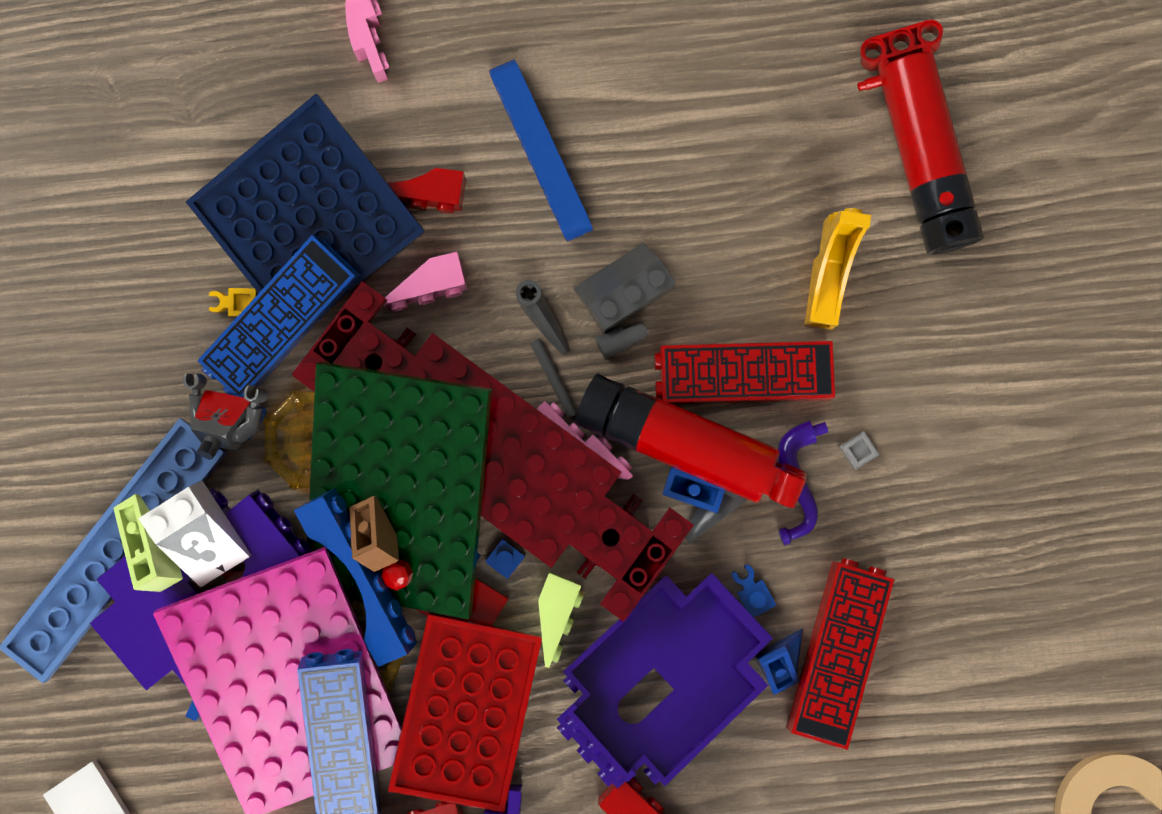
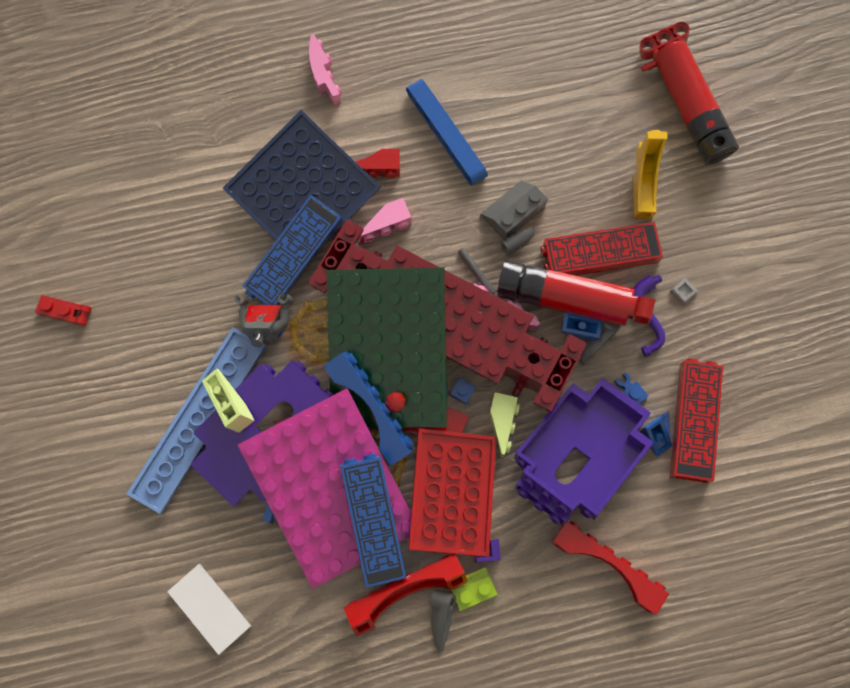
camera: 10 degrees left, 10 degrees down
(195, 534) = (260, 390): white slope -> none
(236, 300) = (260, 250): yellow plate -> none
(372, 535) = (377, 376): medium nougat slope -> none
(542, 315) = (461, 232): dark grey piece -> none

